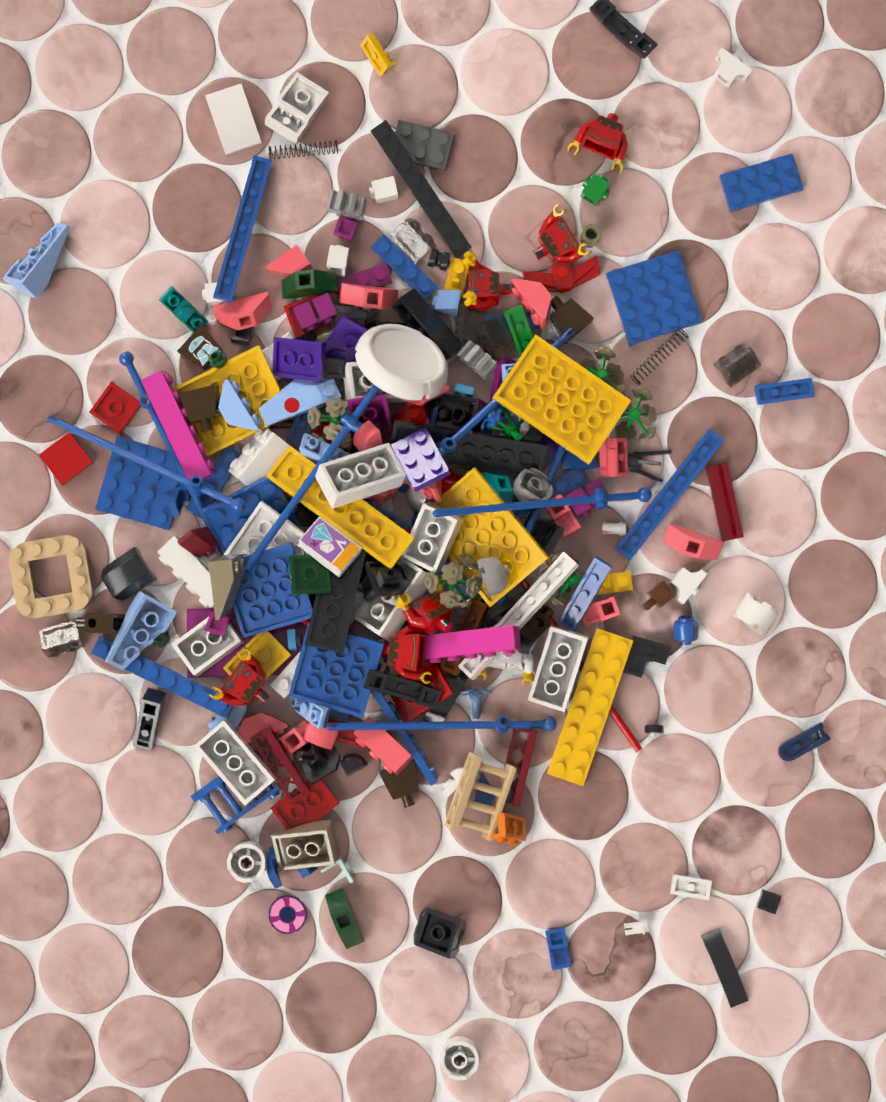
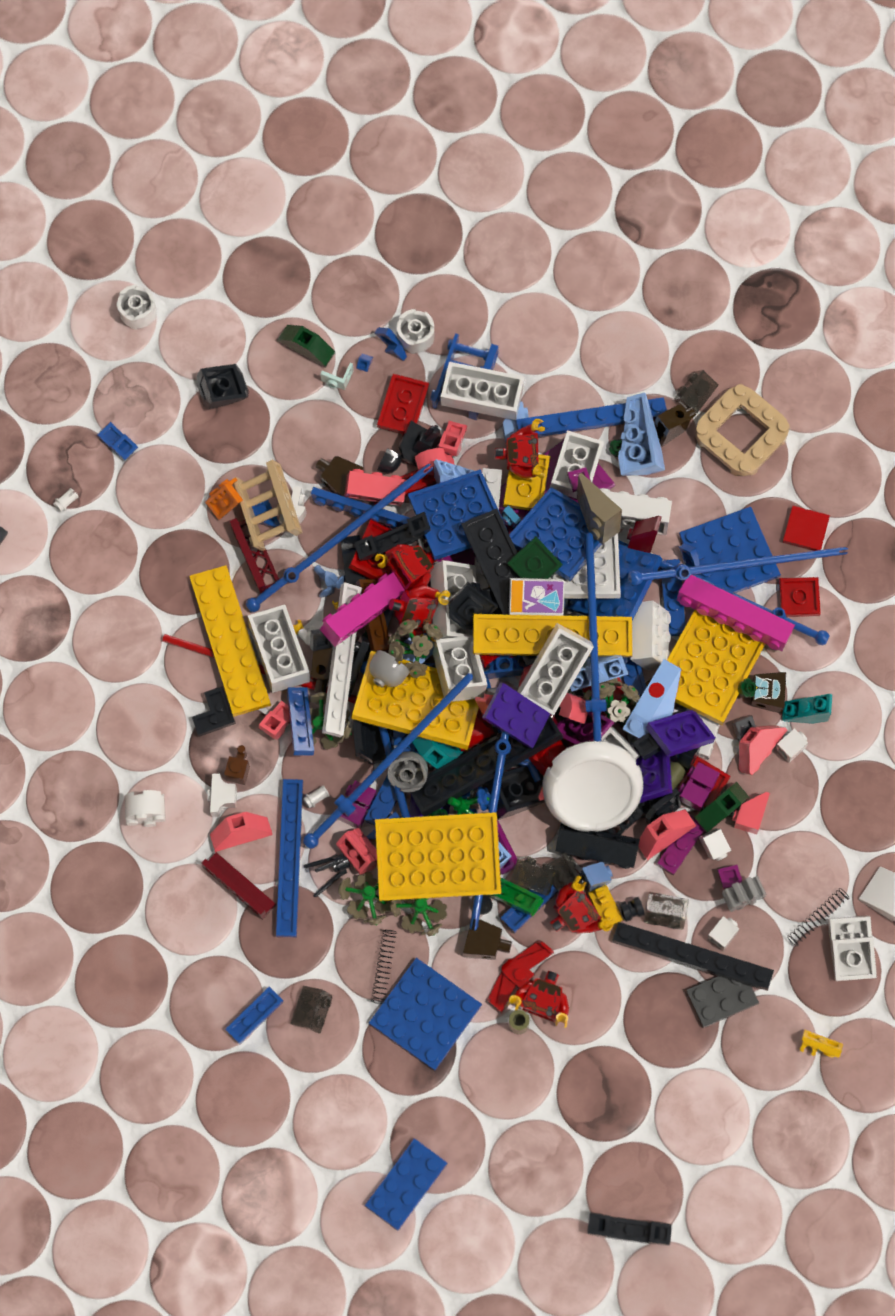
camera: 145 degrees right, 15 degrees down
(127, 575) = (683, 476): black slope -> none
(149, 718) = (578, 381): black slope -> none
(202, 405) = (729, 642): dark brown torso -> none
(236, 408) = (699, 658): light blue slope -> none
(242, 229) = (813, 810): blue plate -> none
(258, 722) = (484, 437): coral slope -> none
(287, 763) = (446, 422): dark red fence -> none
(287, 914) = (353, 318): tile -> none
(306, 846) = (377, 374): dark tan slope -> none
(404, 267) = (656, 882): blue plate -> none
(463, 390) = (526, 816): dark azure plate -> none
(477, 360) = (534, 845): light grey gear -> none
(534, 300) = (524, 930): coral slope -> none
(563, 517) = (360, 770): coral brick -> none
(595, 189) = (545, 1068): green brick -> none
(603, 137) = (571, 1116): red torso -> none
(617, 583) = (280, 755): yellow plate -> none
(654, 729) = (163, 660): black tile -> none
(686, 630) = (194, 757): blue head -> none
(690, 887) = (43, 561): white plate -> none
(730, 68) = (508, 1264): white brick -> none
(802, 743) = (30, 738): dark blue plate -> none

